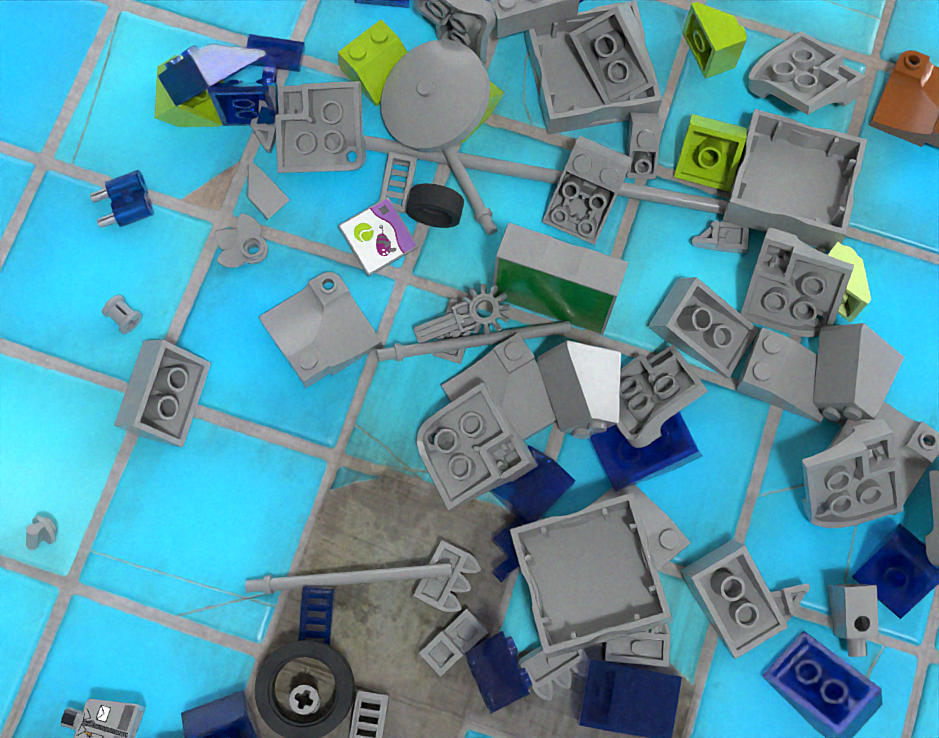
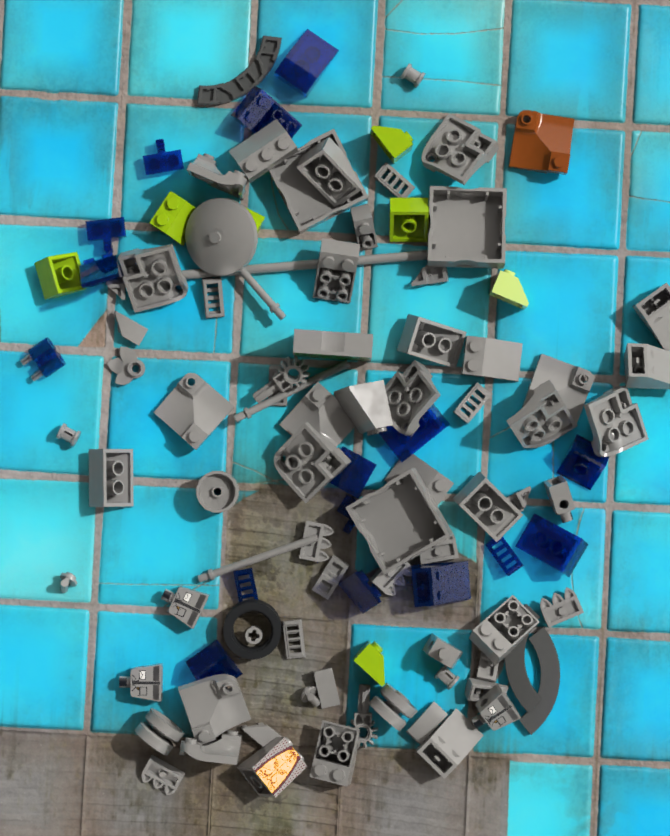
camera: 10 degrees left, 15 degrees up
(204, 68) = (72, 268): clear blue slope -> none
(212, 620) = (186, 604): none -> light grey torso
(305, 443) = (209, 483): none -> light grey wheel
(377, 236) = (211, 338): tile -> none
(435, 205) = (242, 310): black tyre -> none
(702, 84) = (380, 173): none -> light grey slope
(724, 447) = (462, 415): none -> light grey slope
(736, 700) = (512, 569): none -> clear blue slope
(794, 286) = (480, 304): light grey slope -> none
(853, 372) = (529, 350): light grey slope -> none

